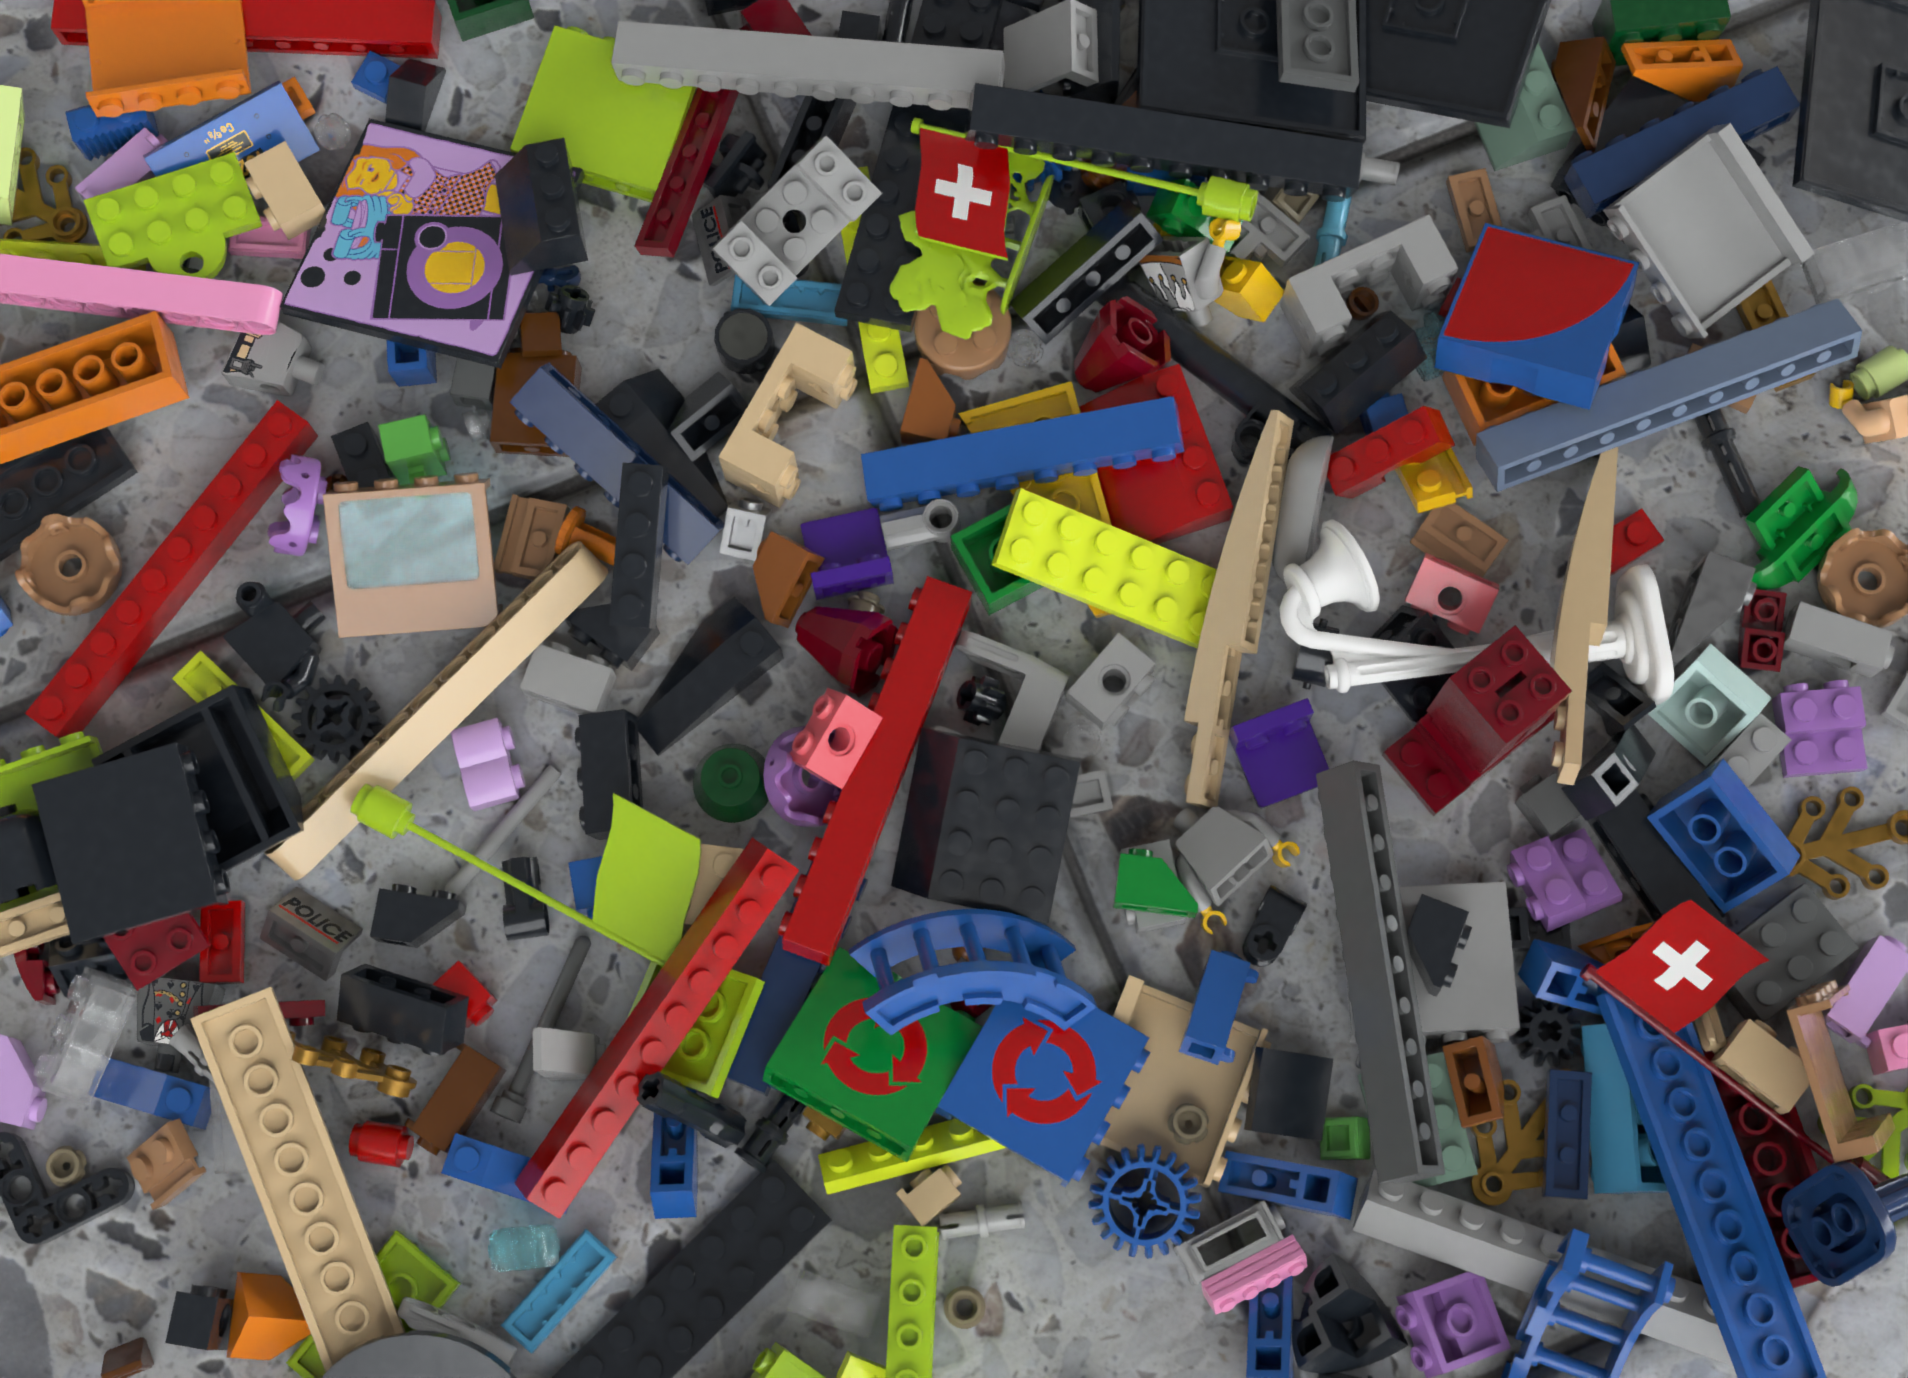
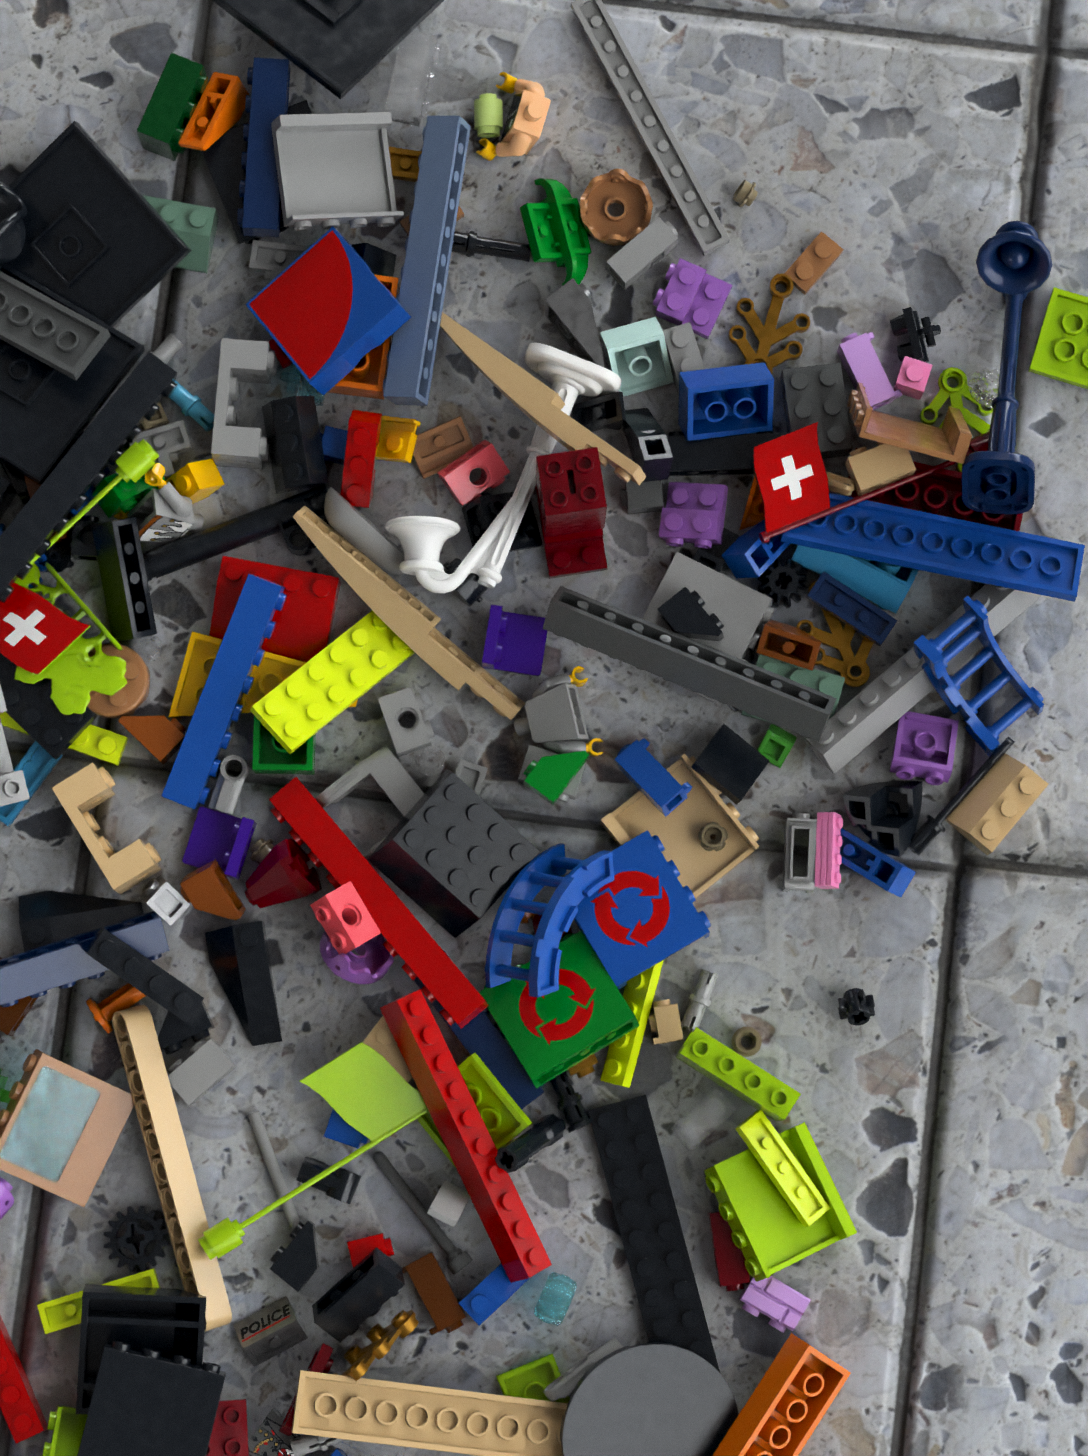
camera: 65 degrees left, 5 degrees up
(226, 933) = (239, 1386): red plate -> none
(276, 643) = (63, 1251): black torso -> none
(381, 1143) = (435, 1356): red brick -> none
(487, 764) = (225, 1155): lavender brick -> none
(529, 536) = (87, 1043): medium nougat plate -> none
(559, 1291) = (593, 1291): dark azure plate -> none
(607, 767) = (275, 1078): black brick -> none
(674, 1168) = (559, 1176): blue slope -> none
(707, 416) = (74, 880): black slope -> none
(731, 783) = (329, 1002): dark green cone -> none
(744, 341) = (34, 828): piece -> none
(981, 700) = (369, 811): black gear -> none
(1121, 346) = (189, 585): dark red cone -> none
(1163, 1207) = (735, 901): blue gear -> none
(1275, 921) = (616, 708): black piece -> none
(1289, 1184) = (785, 797): blue slope -> none
(1365, 300) = (248, 409): reddish brown hinge -> none
(1472, 204) = (225, 302): medium nougat plate -> none
(1584, 78) = (184, 181): reddish brown slope -> none
(1632, 540) = (503, 337): red plate -> none
(1761, 631) = (609, 295): dark red slope -> none

